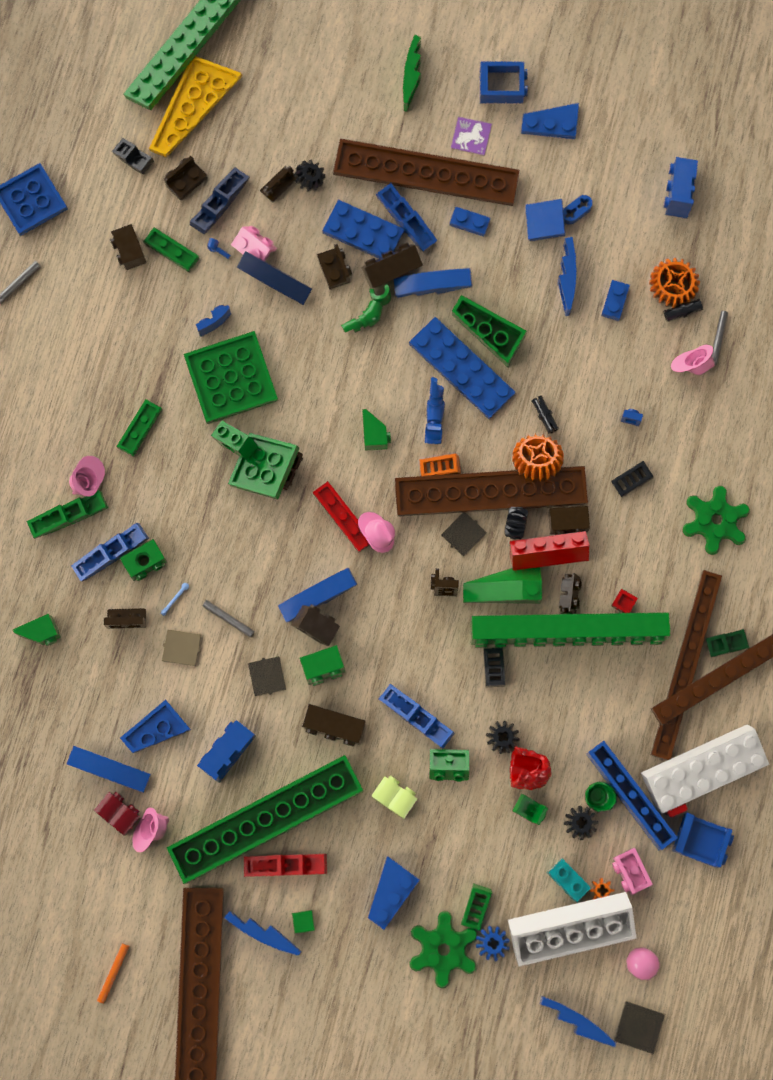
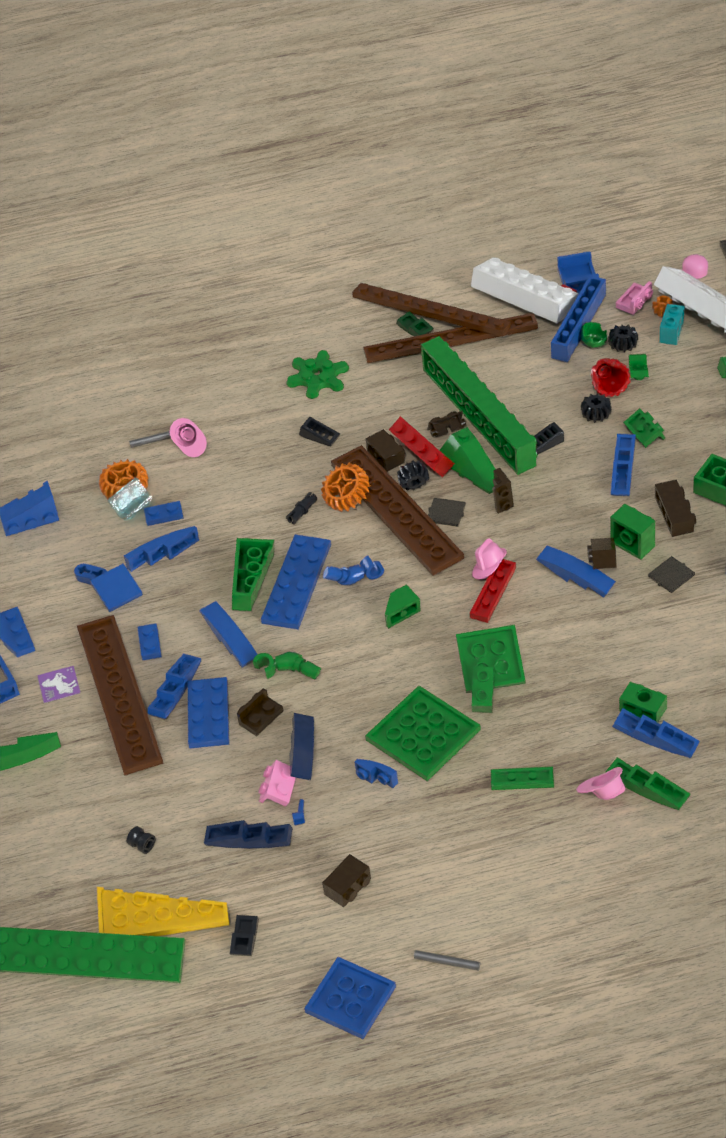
camera: 115 degrees left, 30 degrees down
(125, 618) = (706, 685): dark brown bracket -> none
(171, 249) = (324, 850): green tile -> none
(181, 647) = (696, 642): dark tan piece -> none
(184, 178) = (241, 877): dark brown bracket -> none
(185, 586) = (675, 669): light blue hinge -> none
(228, 618) = (644, 623): flat silver bar -> none
(265, 122) = (141, 840): none -> black wheel
(279, 183) = (199, 798): dark brown hinge -> none
(309, 175) = (177, 773): black gear -> none
(391, 265) = (232, 666): dark brown brick -> none
(394, 797) = (698, 445): yellowish green brick -> none
(439, 459) = (399, 544): orange slope -> none
(624, 601) = (428, 391): red plate -> none
(631, 417) = (265, 453): blue plate -> none
(641, 275) = (130, 499): none -> clear light blue bracket
(683, 310) = (147, 464): black pin -> none

